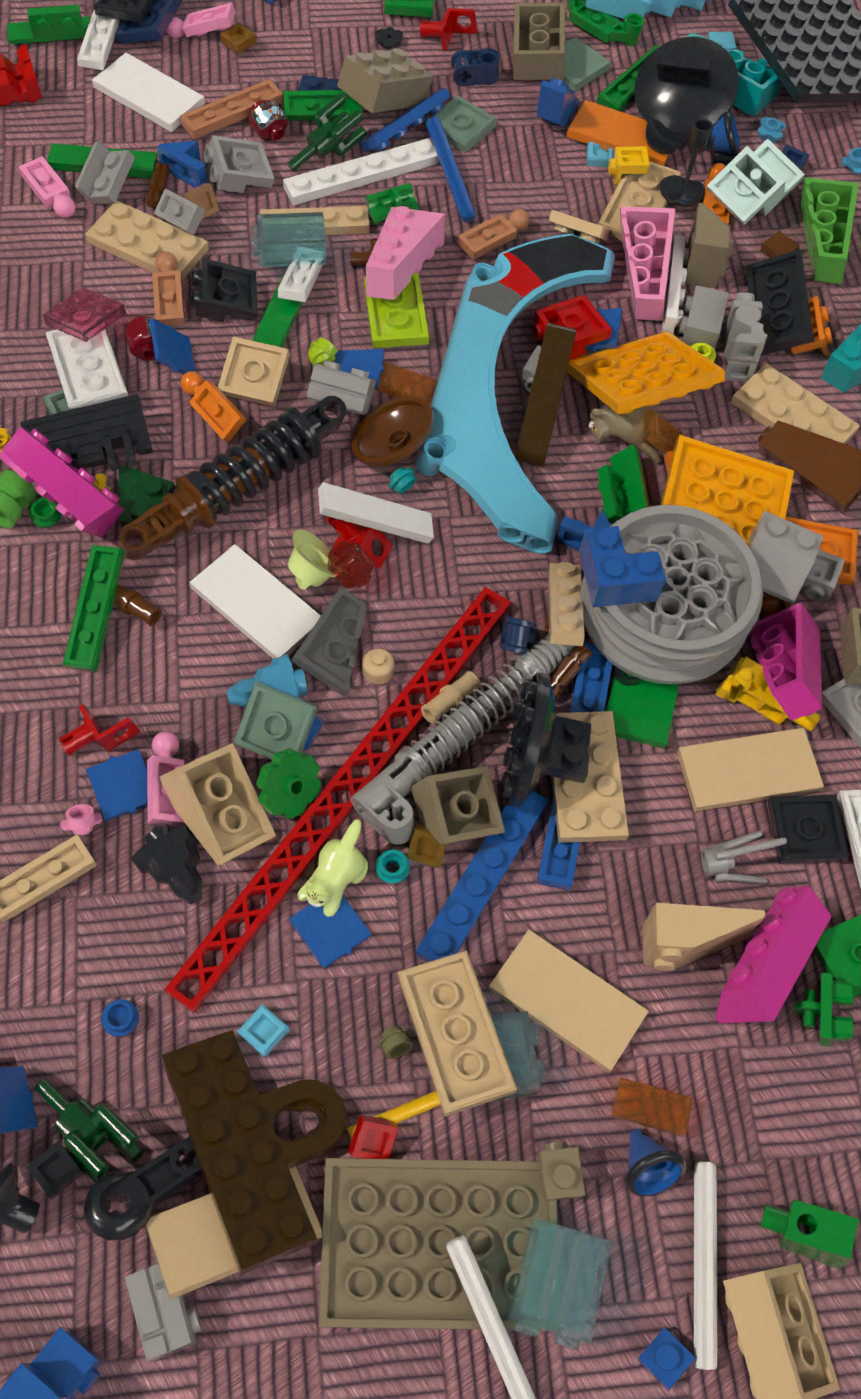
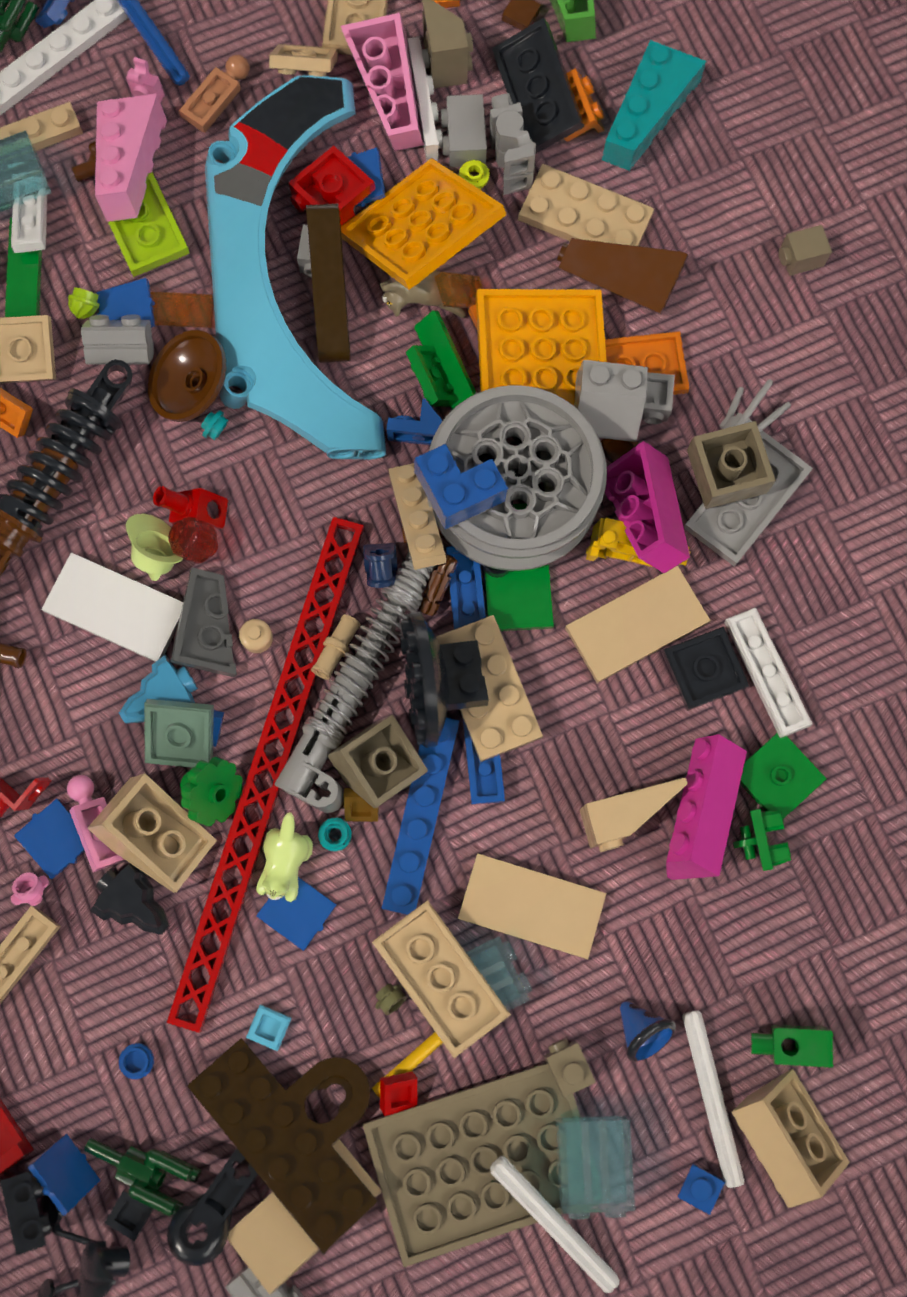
camera: 15 degrees left, 15 degrees up
(375, 513) = (199, 478): white tile -> none
(381, 202) = (98, 87): green hips -> none
(434, 201) = (142, 82): none -> bright pink plate
(652, 1107) = (632, 979): clear orange plate -> none
(720, 858) = (631, 727): light grey plant -> none

